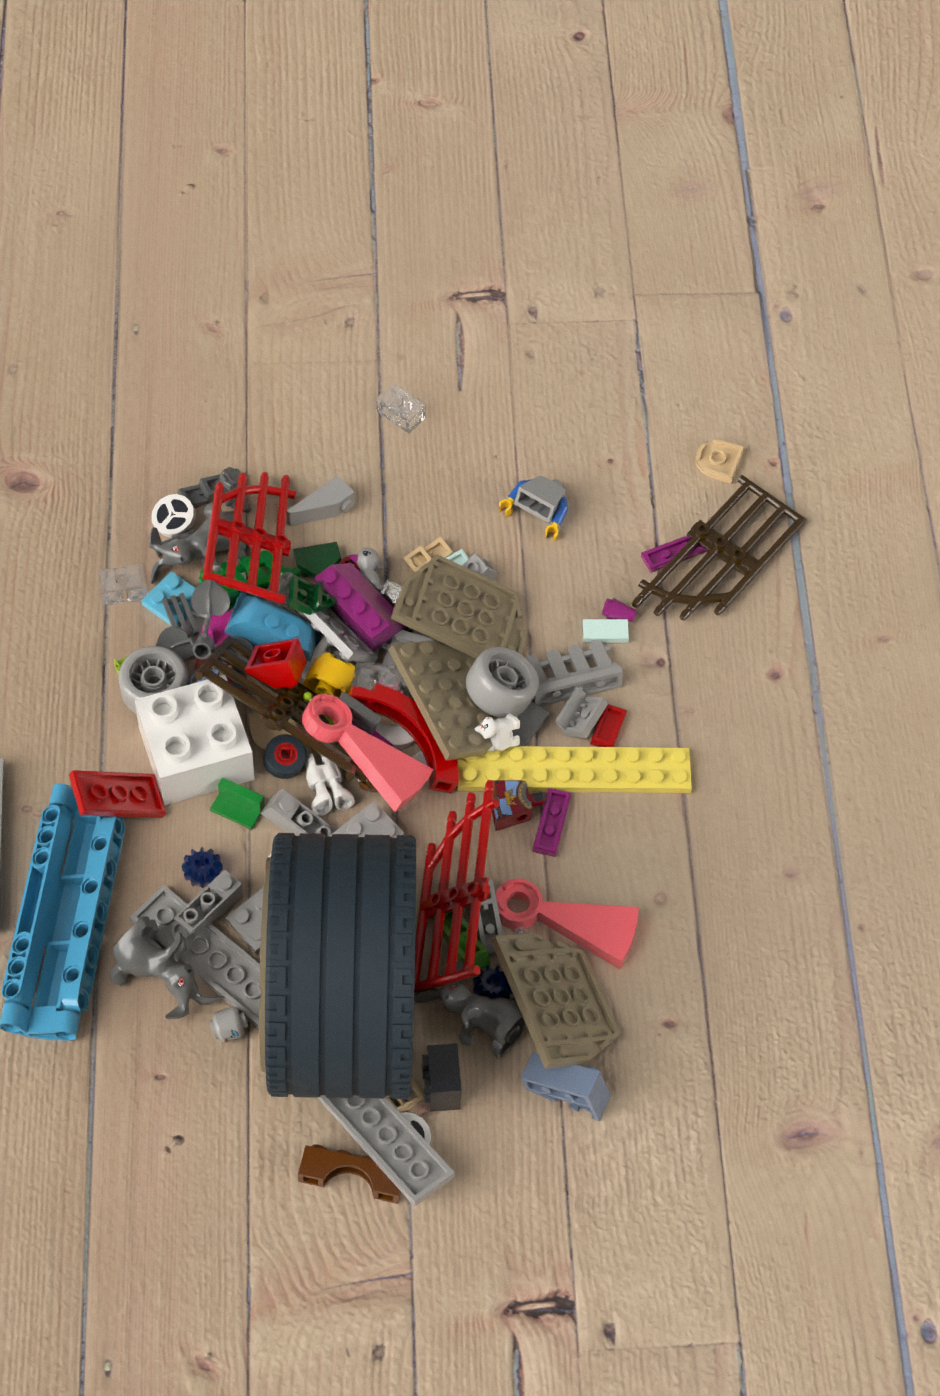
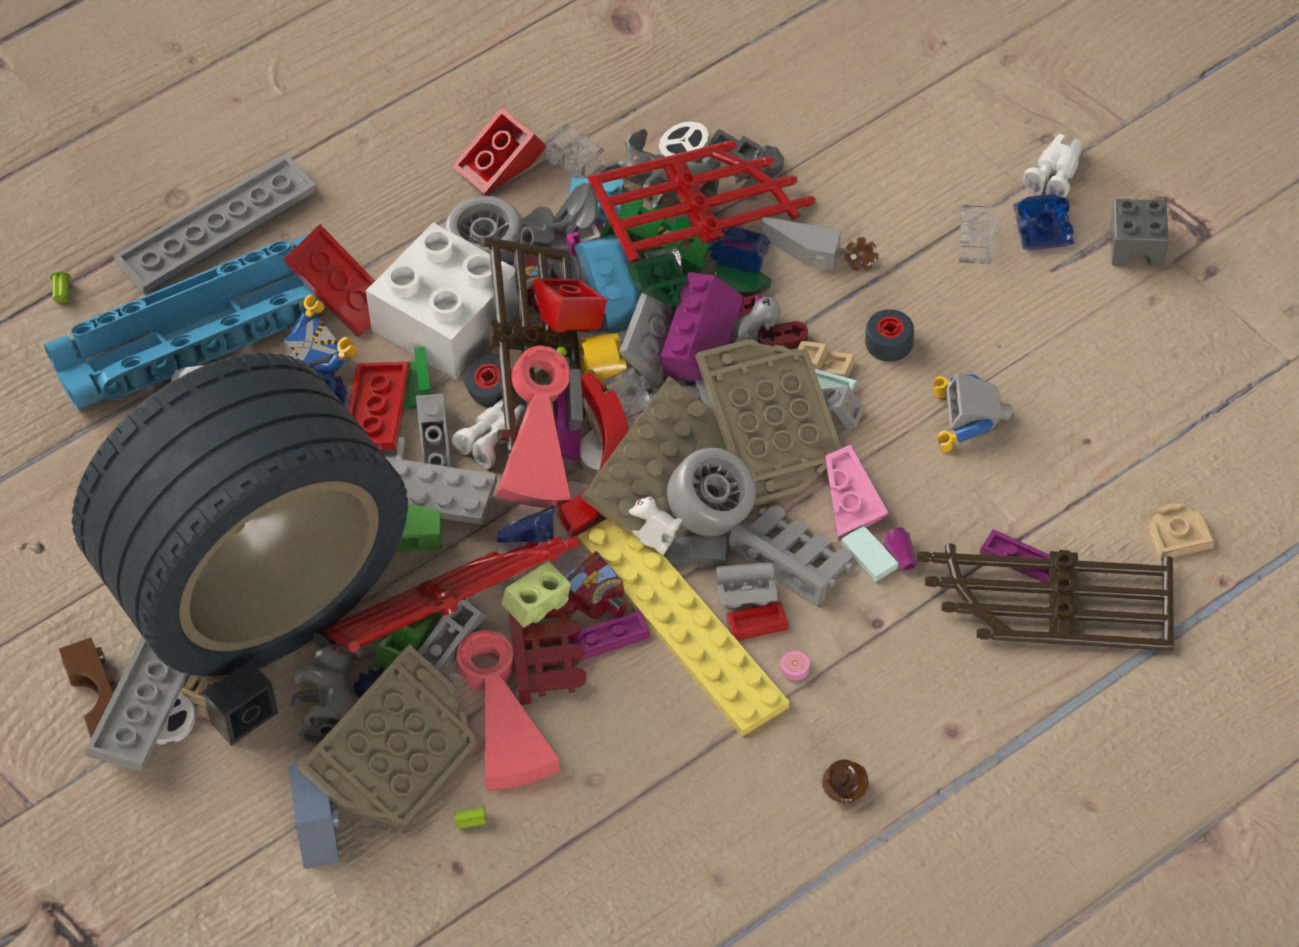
camera: 60 degrees right, 5 degrees down
(79, 629) = (499, 152): none -> red slope
(157, 849) = (315, 343): none -> torso
(236, 838) = (379, 400): none -> red tile
(304, 541) = (740, 249): none -> clear blue slope
(361, 478) = (861, 258): none -> reddish brown plant
(381, 325) = (1056, 160): none -> white piece
(394, 567) = (782, 334): none -> dark red beam
(422, 366) = (1044, 222): none -> clear blue slope
(437, 808) = (533, 528): none -> clear blue slope
(442, 507) = (889, 335): none -> black wheel
(479, 322) = (1139, 229): none -> dark grey piece
(503, 838) = (534, 590): none -> yellowish green brick
(519, 865) = (549, 656): none -> dark red fence
(553, 608) = (852, 493): none -> bright pink wing
(640, 990) = (471, 817): none -> lime piece
(661, 727) = (795, 665): none -> bright pink tile
(777, 755) = (845, 781): none -> reddish brown hair

